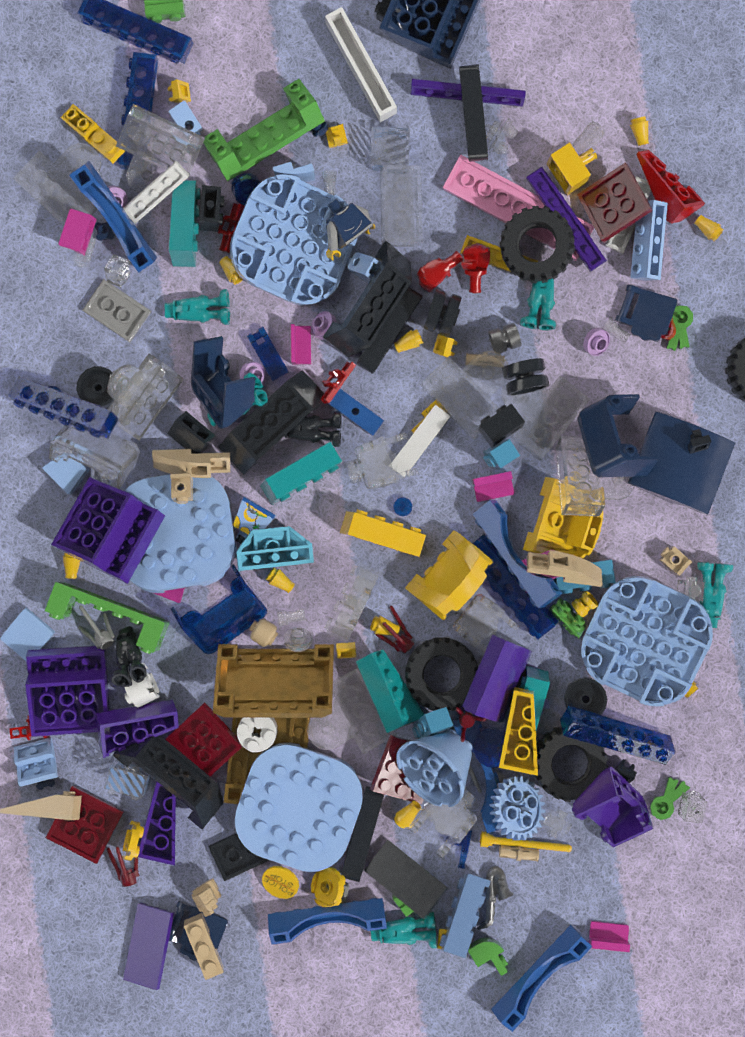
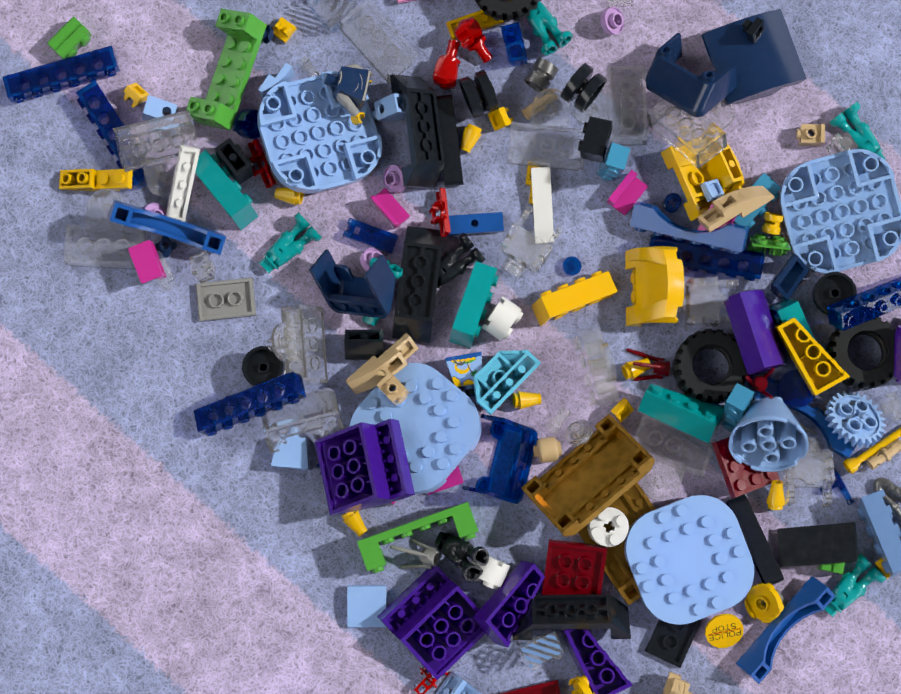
camera: 40 degrees left, 5 degrees down
(313, 503) = (502, 318): none -> white brick
(503, 296) = (513, 45): none -> clear blue slope
(527, 521) = (668, 207): none -> clear blue bush
(560, 540) = (712, 190): none -> light blue tile
(561, 657) = (789, 277): none -> dark blue tile

